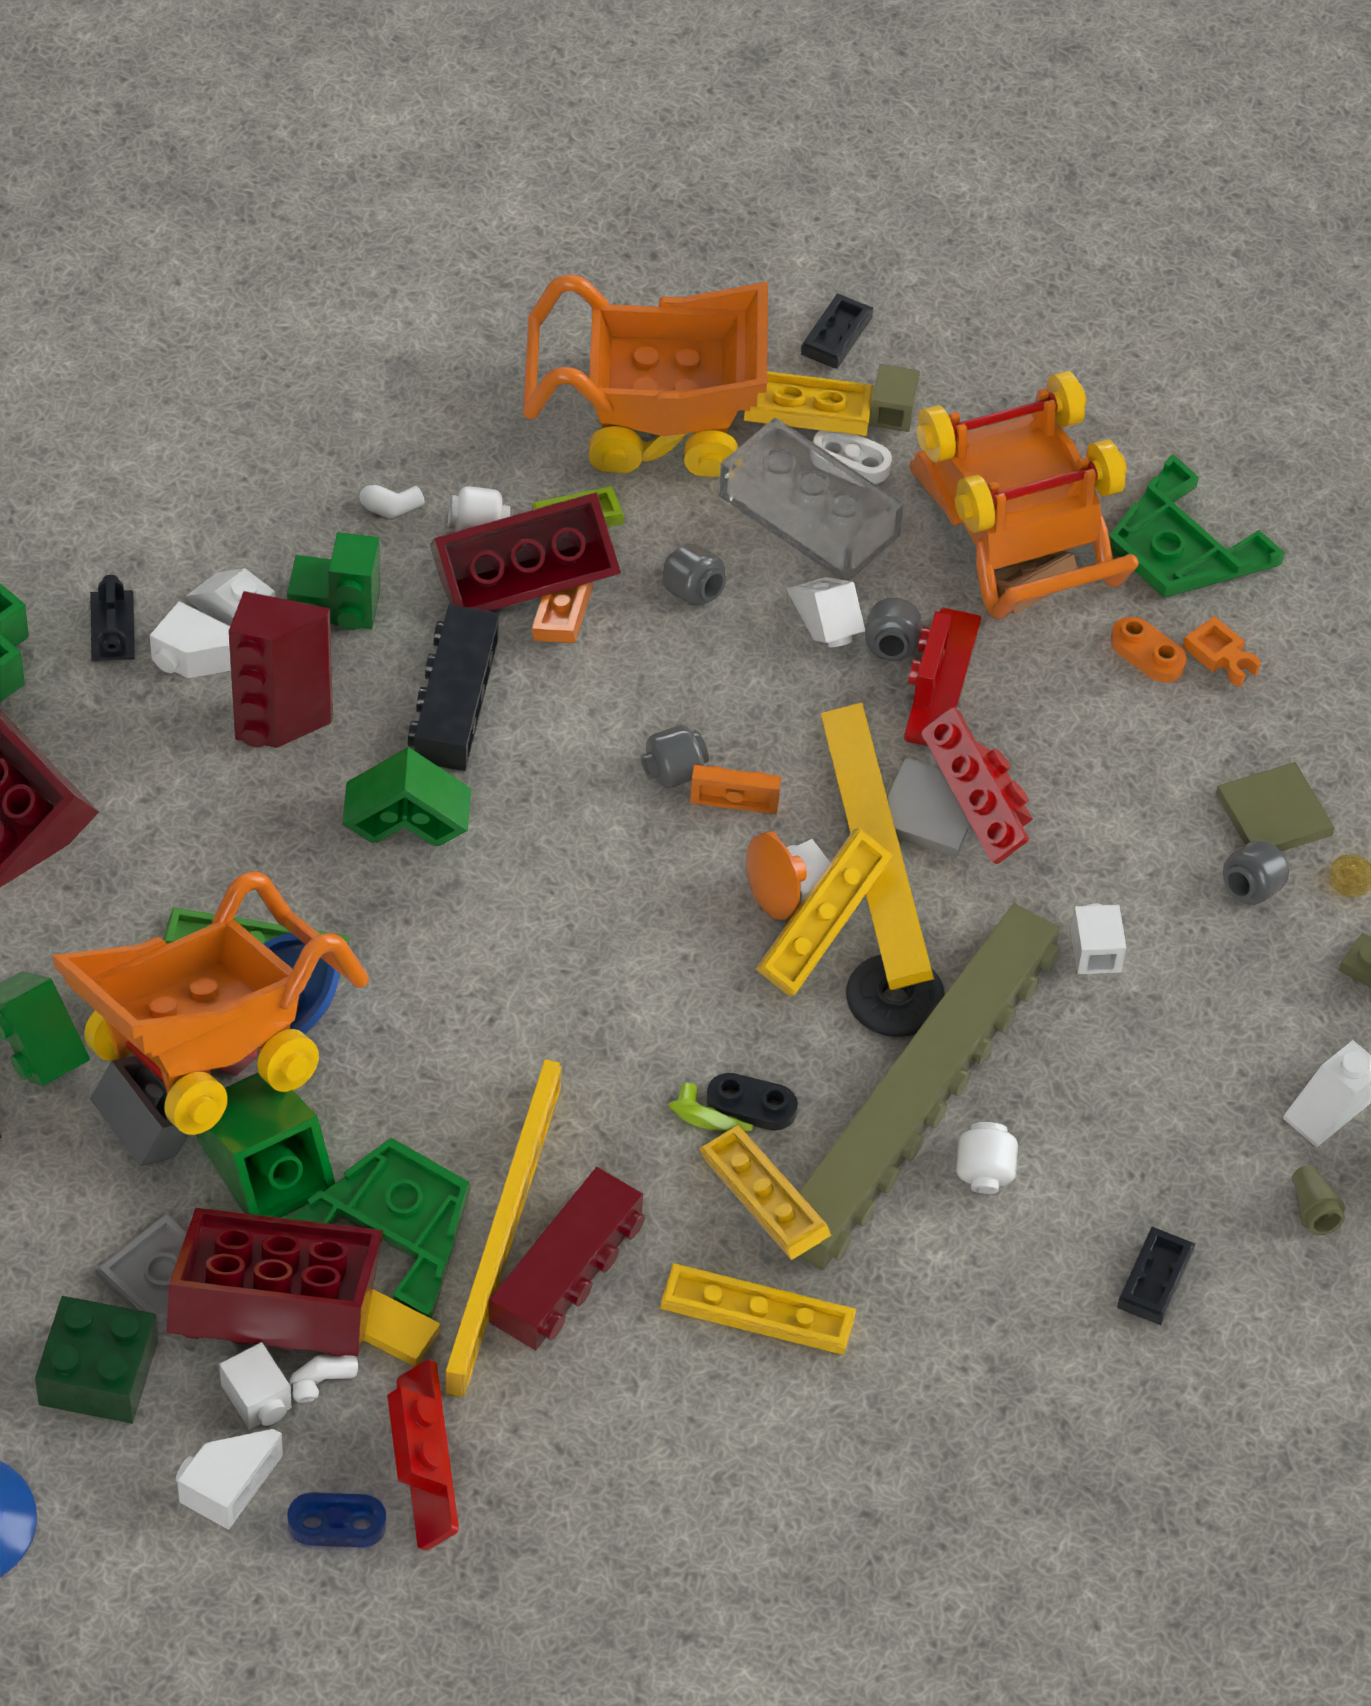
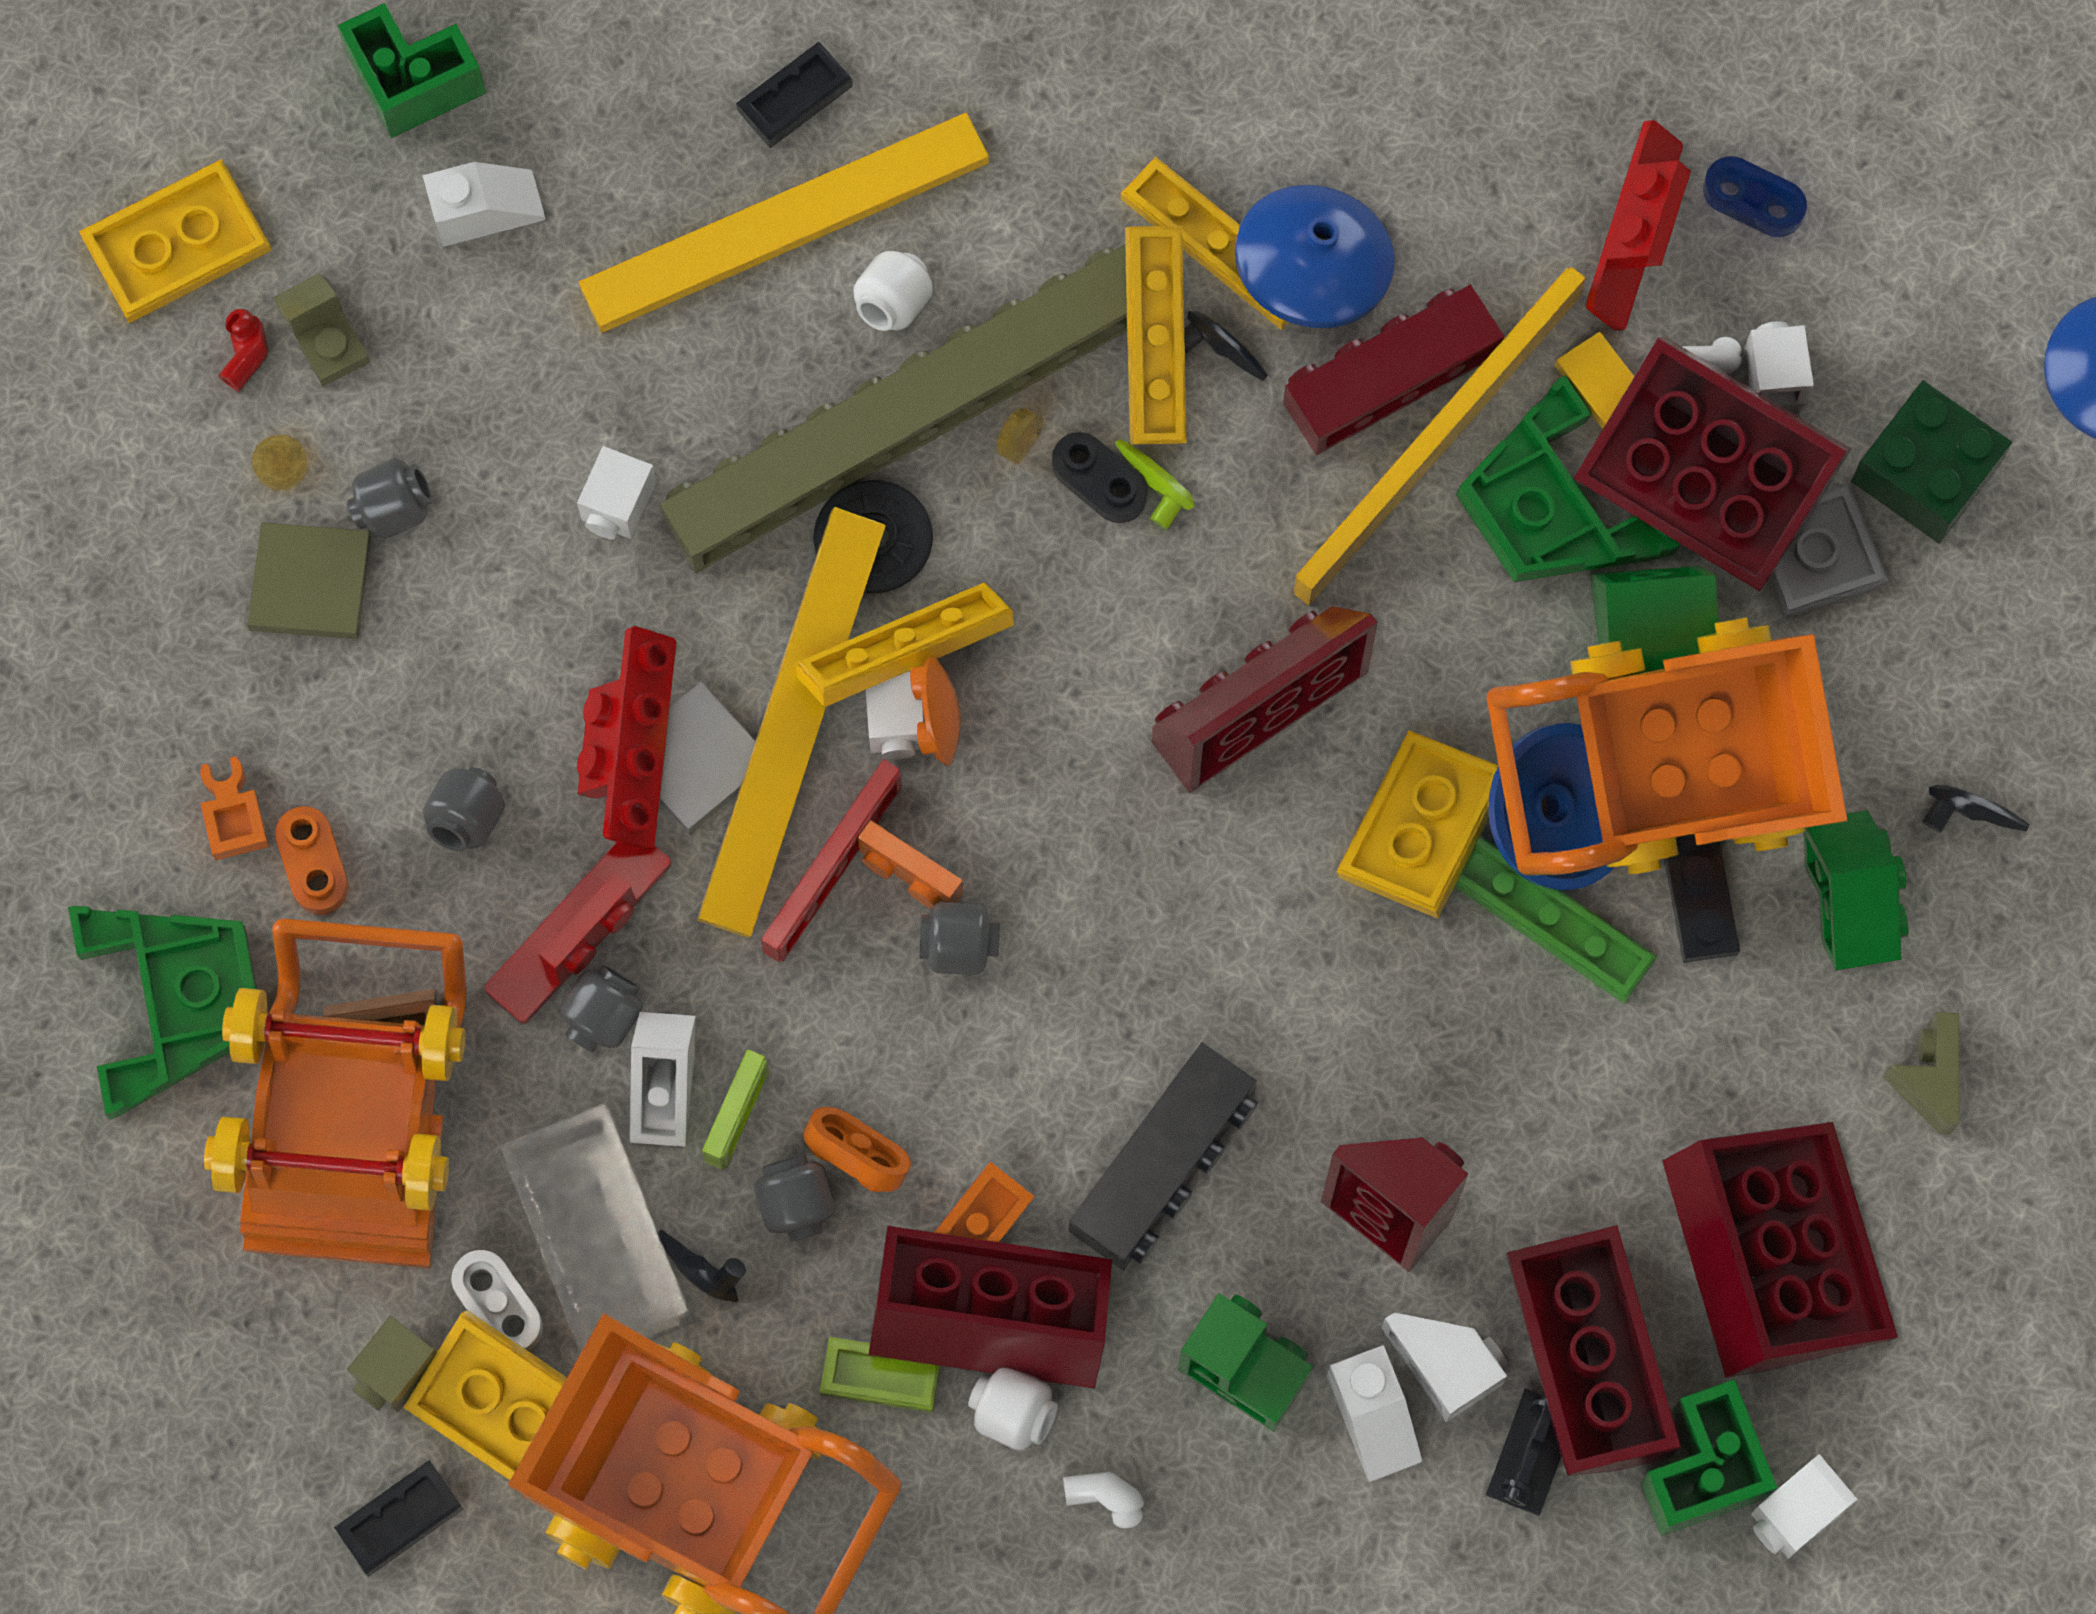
camera: 150 degrees left, 20 degrees up
(96, 673) = (1593, 1353): none -> dark red slope
(228, 1474) = (1846, 283): white slope -> none
(392, 949) = (1421, 825): none -> yellow tile
(409, 795) = (1304, 1000): green brick -> none
(541, 969) = (1264, 694): none -> dark red slope
(669, 619) = (856, 1149): none -> orange plate
(681, 1350) = (1308, 277): none -> blue dish
(720, 1235) = (1221, 341): none -> black bar
(733, 524) = (710, 1280): none -> black bar
(764, 607) = (736, 1110): none -> lime tile
(792, 767) = (831, 862): none -> red tile
(829, 1098) = (1019, 435): none -> clear yellow tile
(1066, 706) = (463, 809): none -> dark grey head
(1099, 1187) = (783, 222): none -> yellow tile
(1317, 1202) = (578, 99): olive cone -> none

